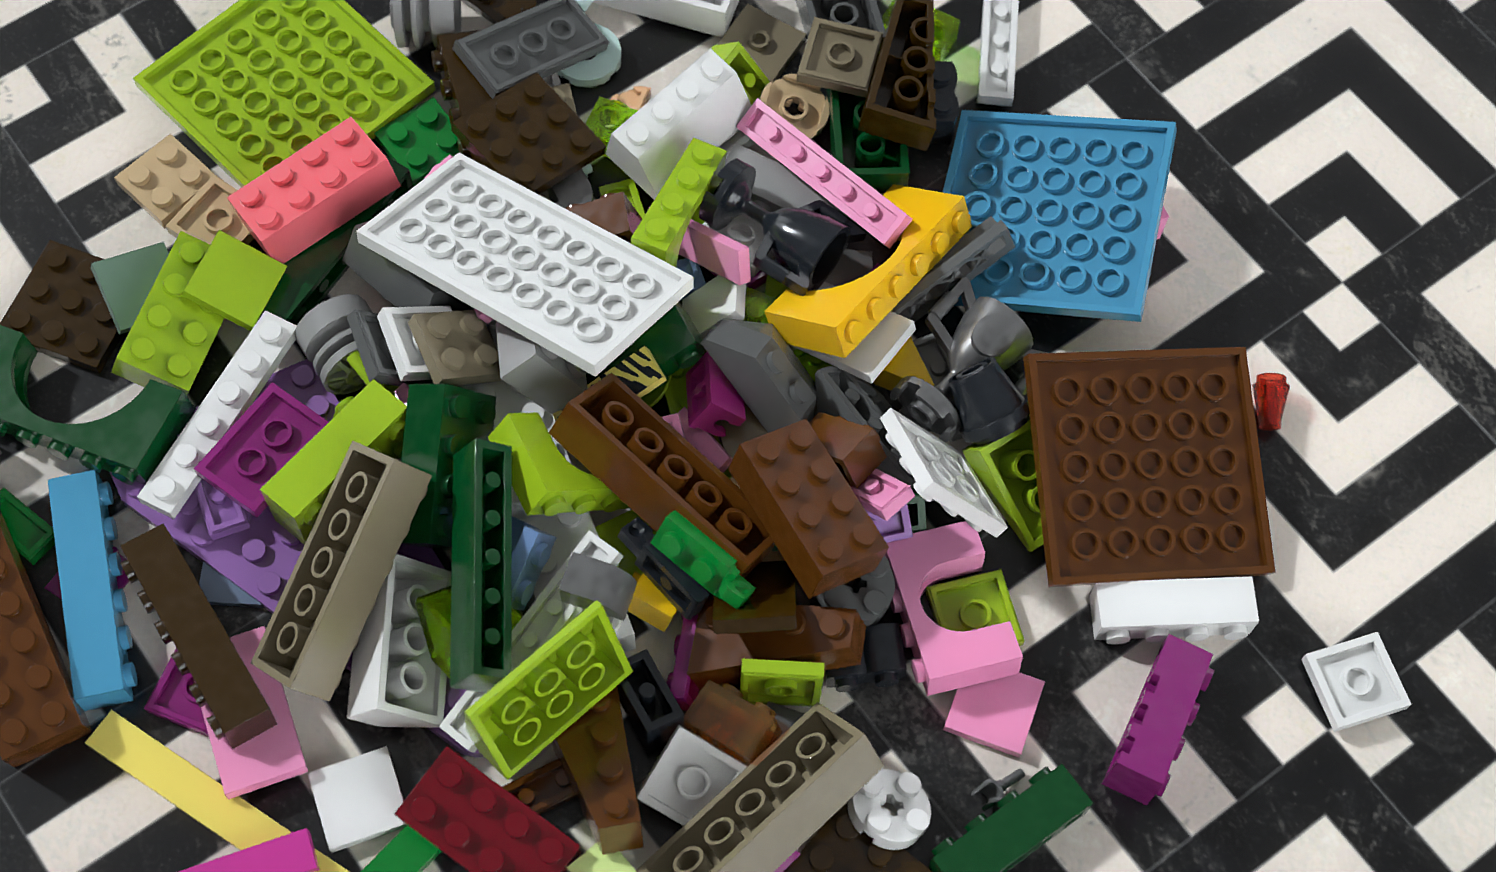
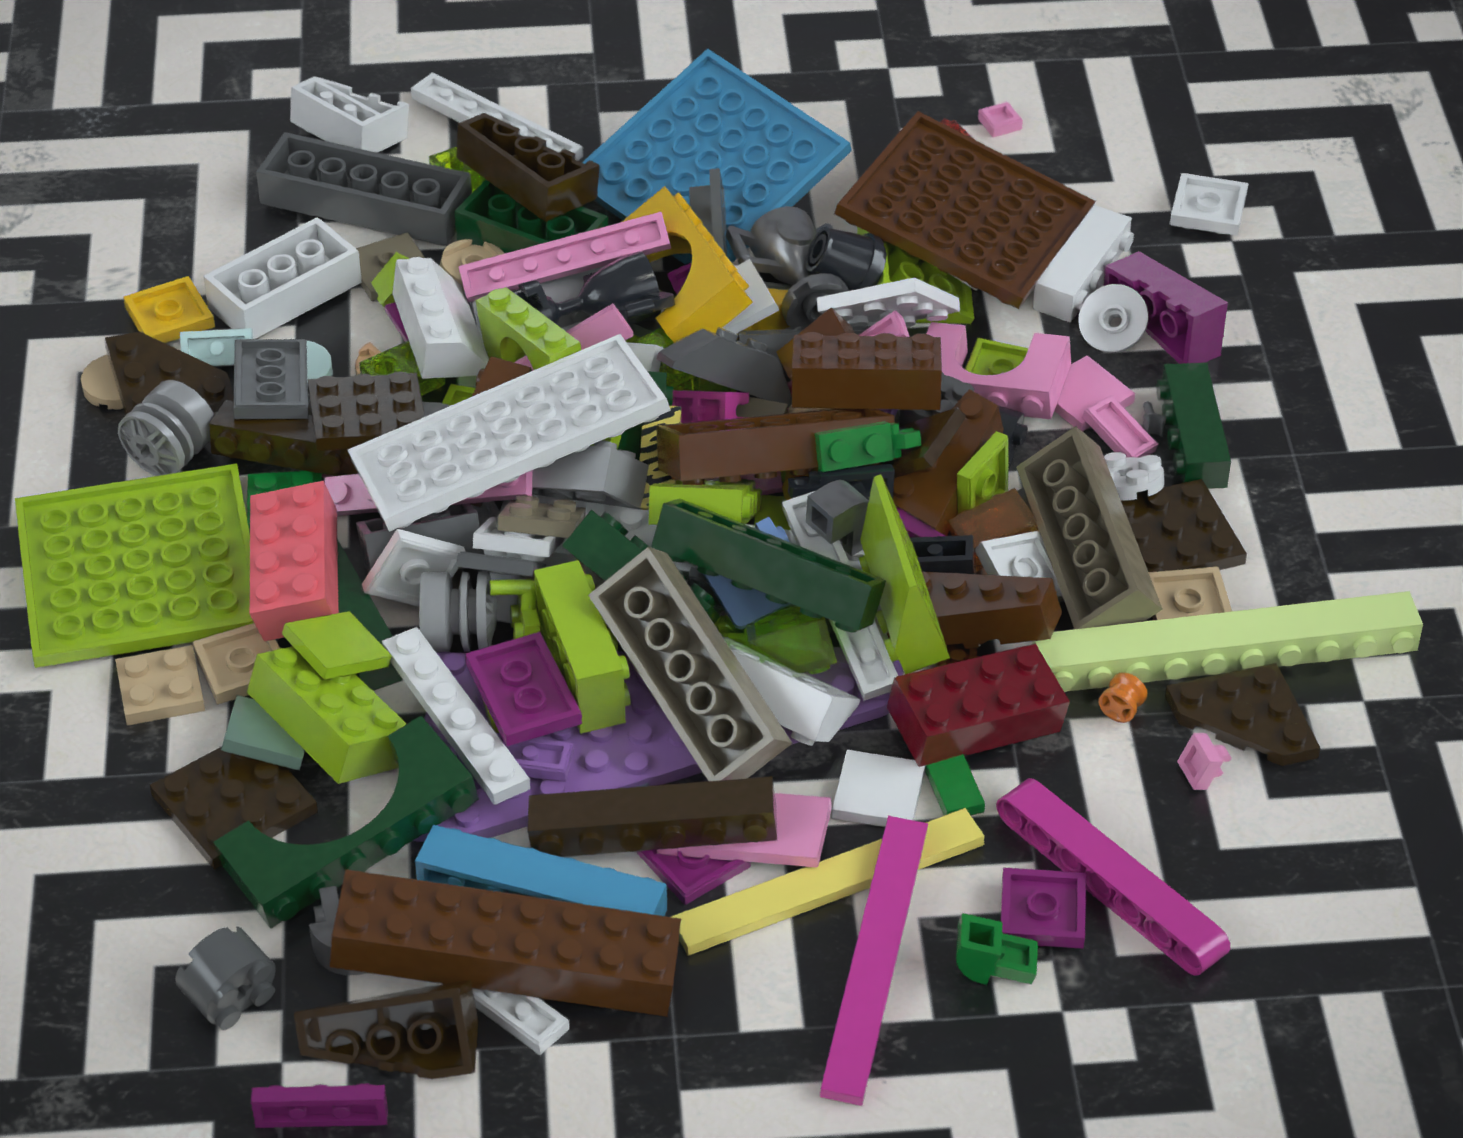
camera: 55 degrees left, 20 degrees down
(360, 279) = (401, 565): none -> white tile
(839, 57) = (470, 200): dark tan plate -> none
(958, 767) = (1119, 428): none -> bright pink tile
(1095, 673) = (1103, 307): none -> white dish
(1339, 421) = (1000, 119): none -> bright pink tile

